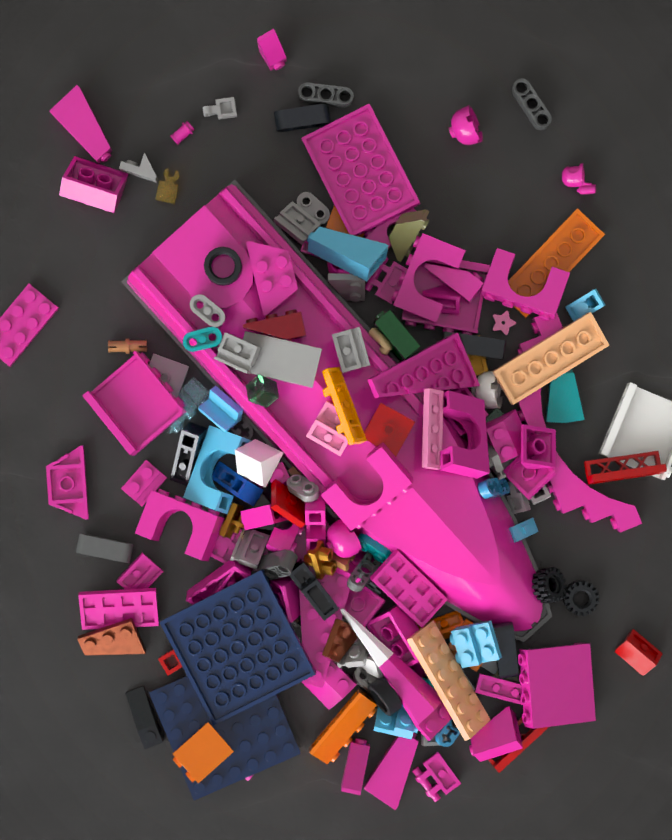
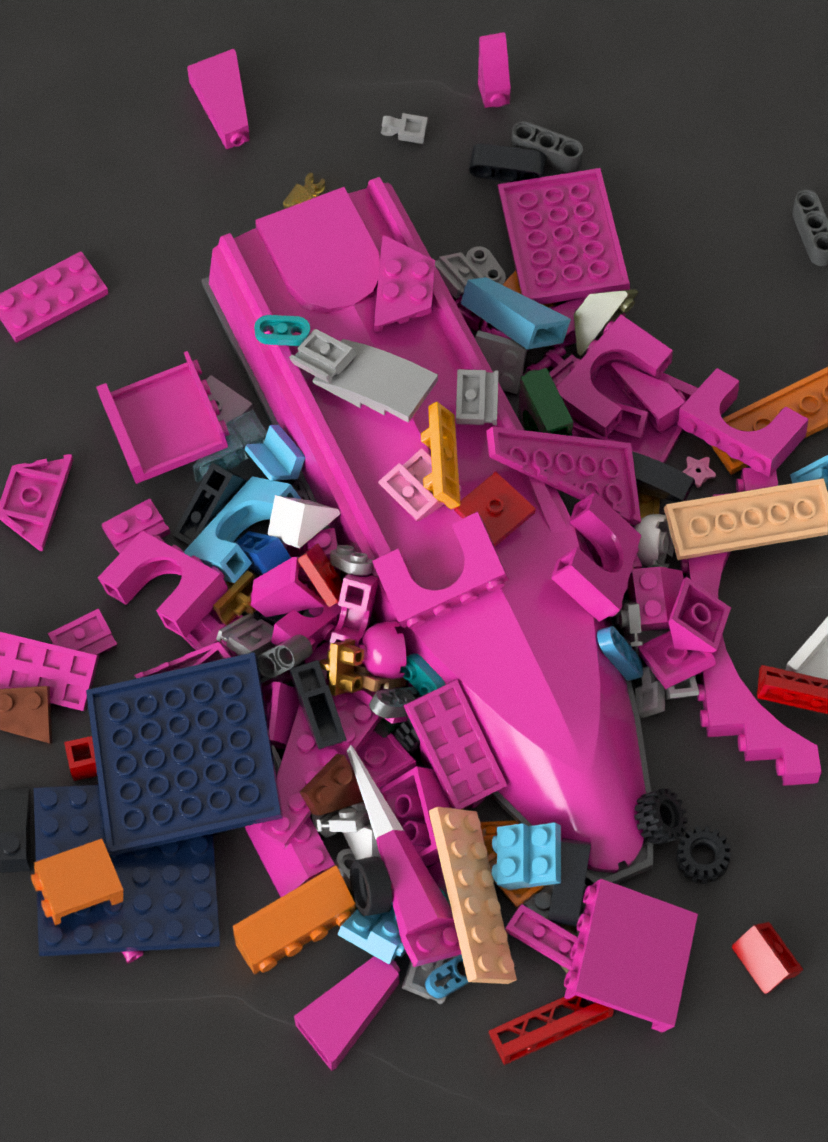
camera: 20 degrees right, 25 degrees down
(93, 184) = (209, 165): dark pink slope -> none
(104, 548) = (49, 590): dark grey beam -> none
(128, 346) = (176, 356): medium nougat pin -> none
(144, 171) = (277, 166): light grey slope -> none
(182, 132) = (346, 140): dark pink pin -> none
(207, 311) = (302, 302): light grey plate -> none
(220, 251) = (337, 237): black tyre -> none
(262, 391) = (339, 412): clear green panel -> none
(283, 327) = (401, 340): dark red slope -> none
(355, 766) = (292, 985): dark pink slope -> none
(386, 346) = (522, 406): tan arm -> none
(432, 428) = (556, 529): bright pink plate -> none
(440, 772) = (417, 1037): dark pink plate -> none
(465, 126) = (718, 225): dark pink cylinder -> none
(497, 737) = (517, 1005): dark pink slope -> none
(523, 529) = (646, 733): medium azure piece -> none
(564, 400) = (755, 586): teal piece -> none

